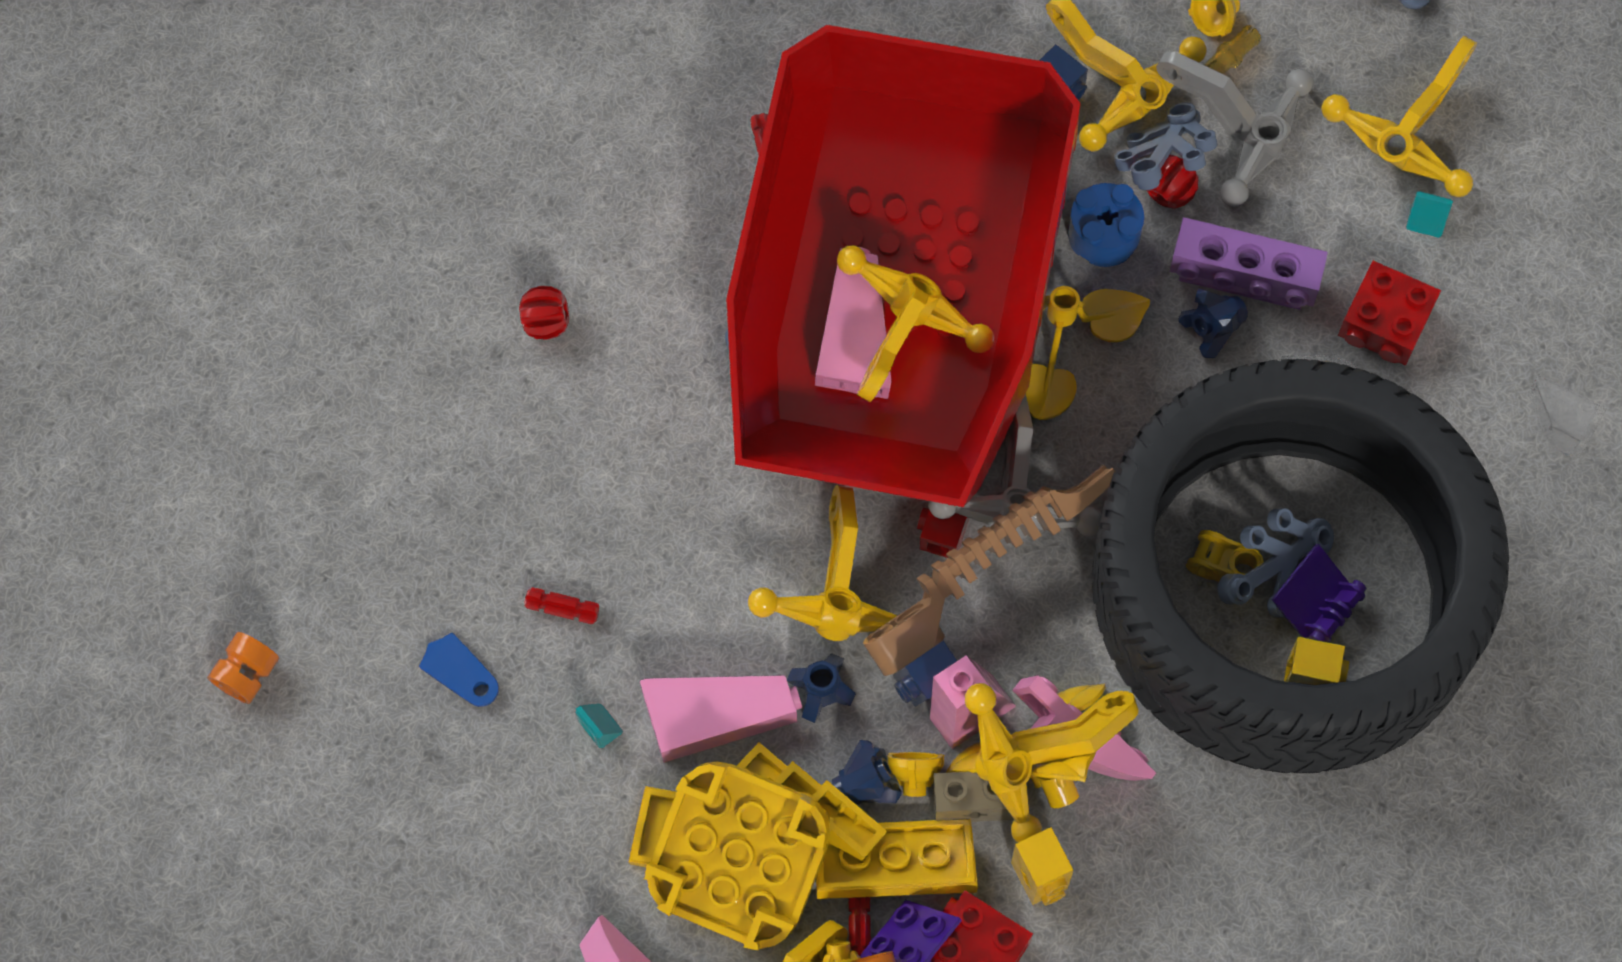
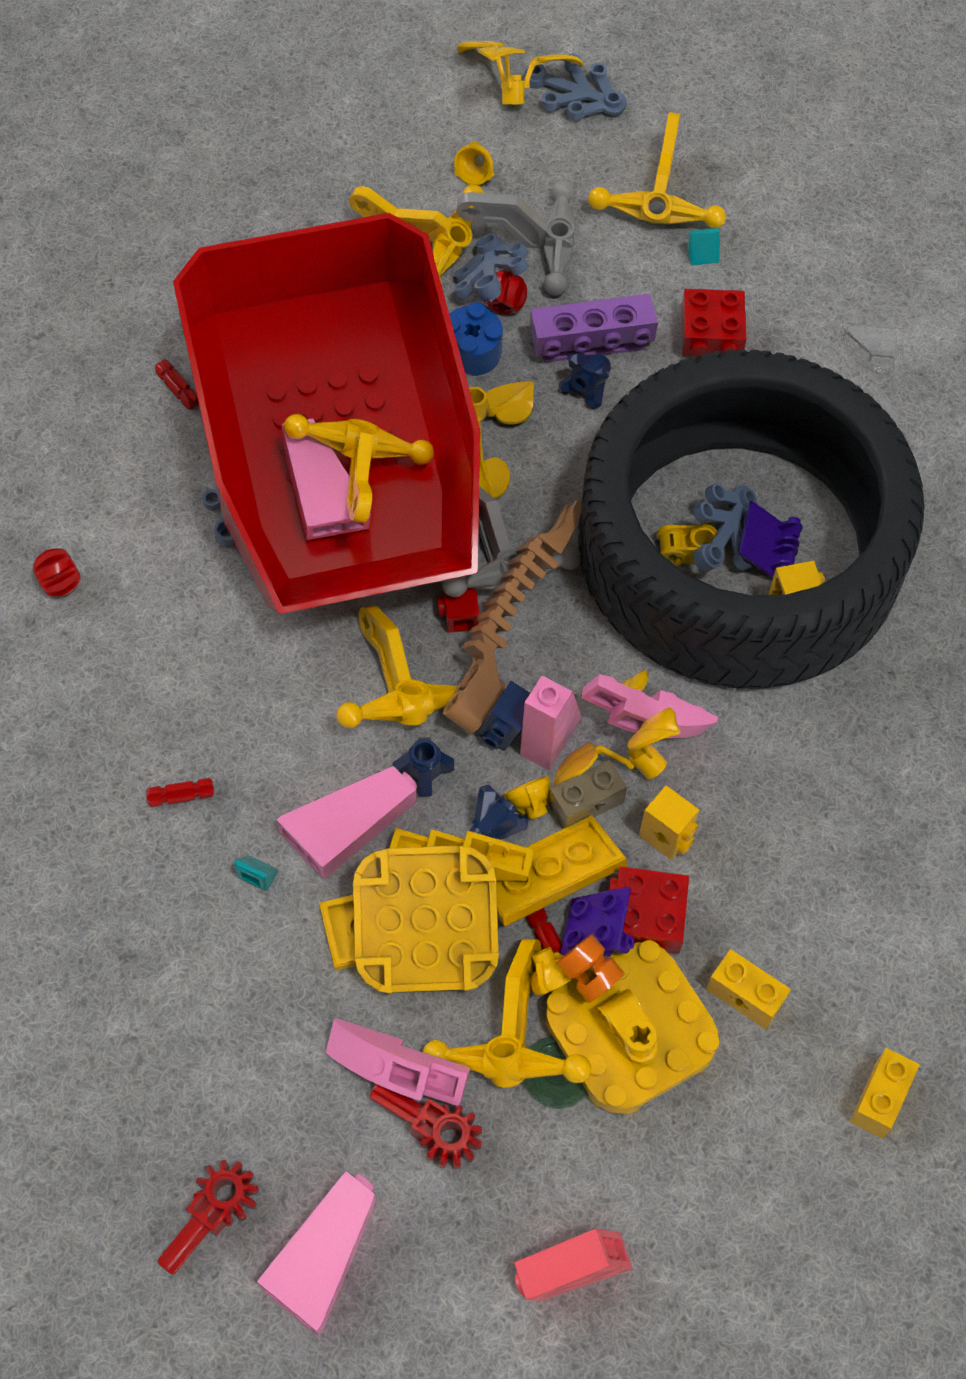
camera: 30 degrees left, 5 degrees down
(459, 670) = (117, 879): blue piece -> none
(1008, 758) = (608, 744): yellow piece -> none
(1231, 53) = (505, 181): clear yellow pin -> none

